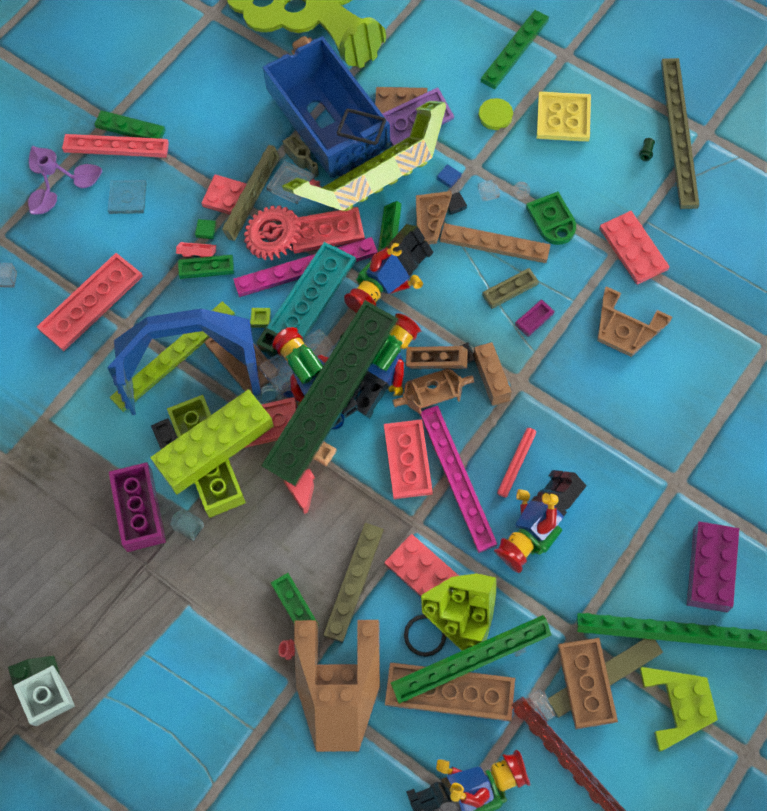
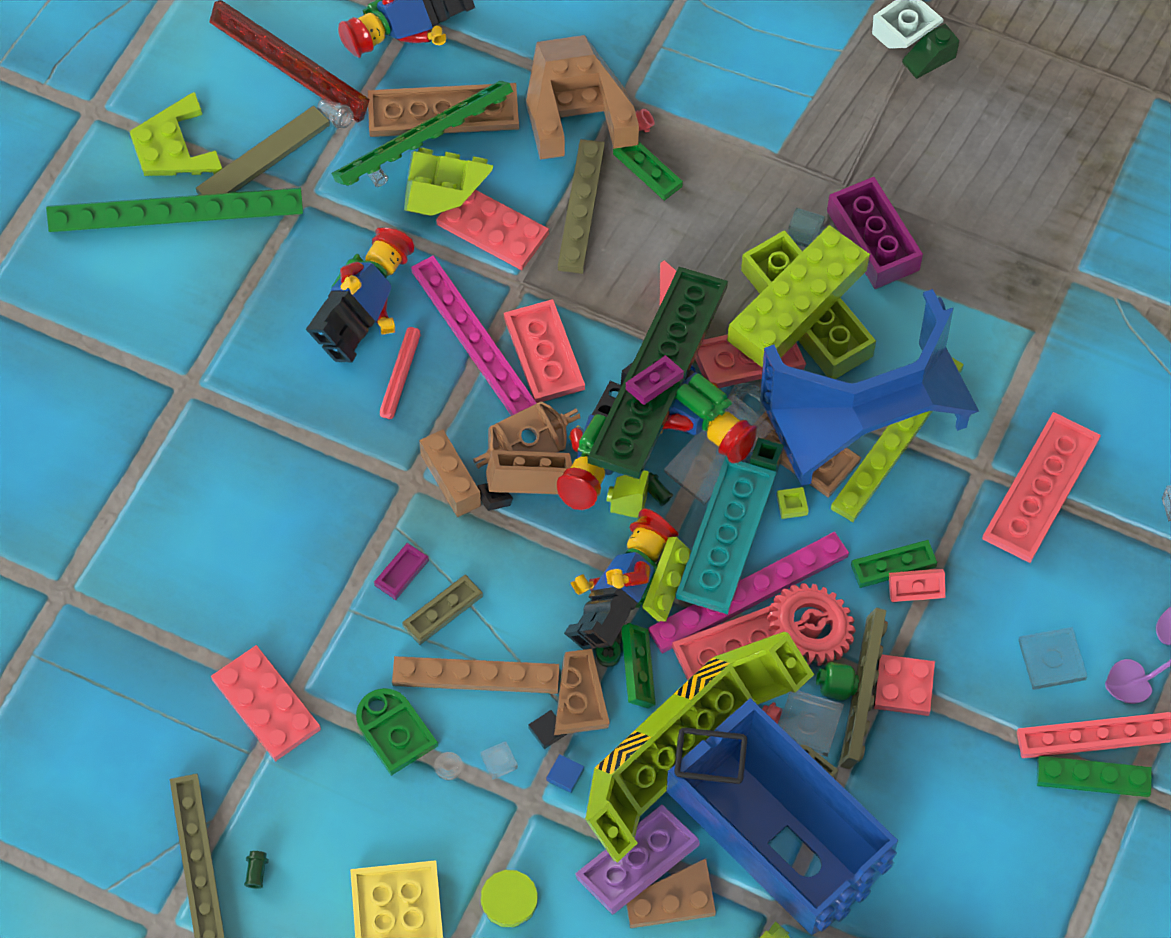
camera: 165 degrees right, 5 degrees down
(164, 432) = (872, 323): black plate -> none
(205, 229) = (915, 625): green tile -> none
(265, 197) = (837, 681): none -> green head
(337, 371) = (654, 380): none -> magenta plate
(358, 266) = (667, 579): none -> lime plate
(411, 647) = (499, 151): black piece -> none
(587, 683) = (284, 139): medium nougat tile -> none
(623, 331) = (270, 566): medium nougat wing -> none
(713, 567) = (138, 284): magenta brick -> none

